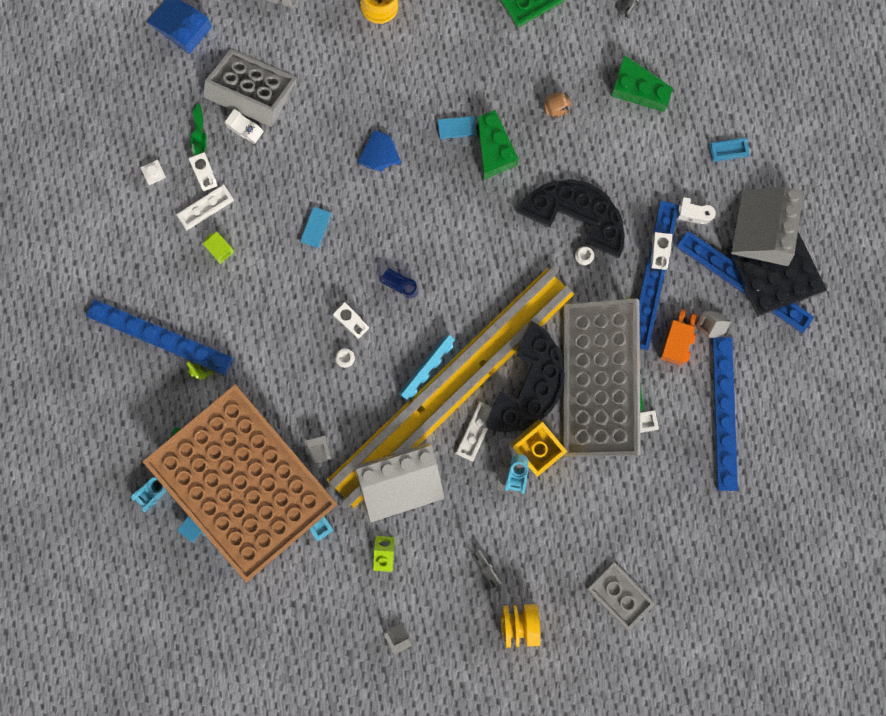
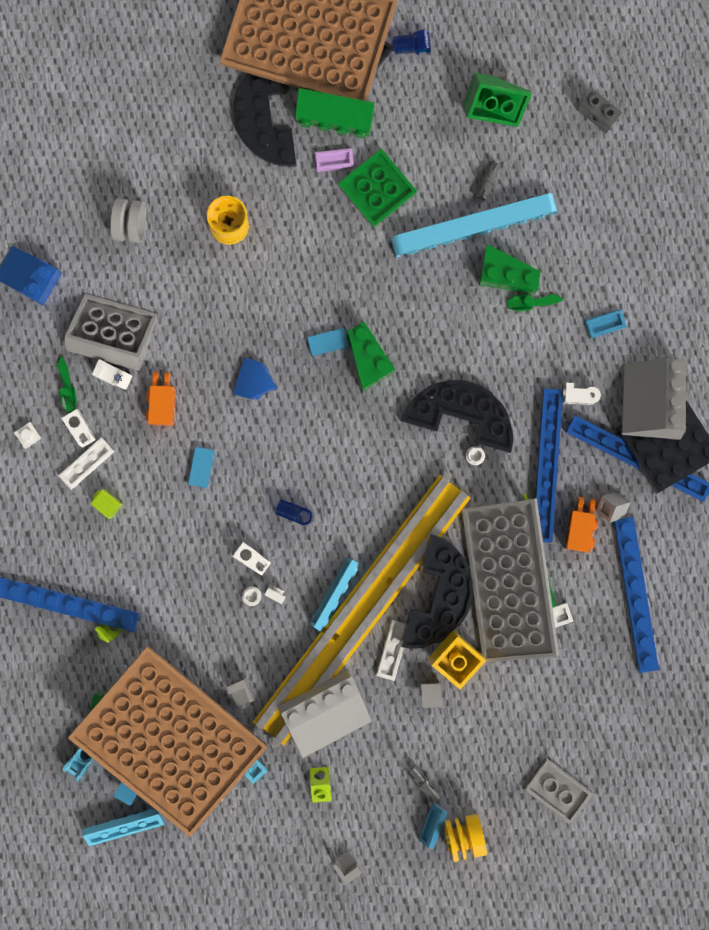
camera: 10 degrees left, 5 degrees up
(181, 564) = (122, 827): none -> medium azure plate
(287, 159) = (161, 402): none -> orange hinge
(369, 359) = (275, 594): none -> white plate
(490, 611) = (432, 826): none -> dark azure tile
(517, 477) = (441, 691): medium azure piece -> none
(557, 104) = (425, 304): medium nougat head -> none
(614, 37) = (473, 224): none -> medium azure beam
(654, 118) = (526, 303): none -> green piece
(661, 250) = (551, 442): white leg -> none

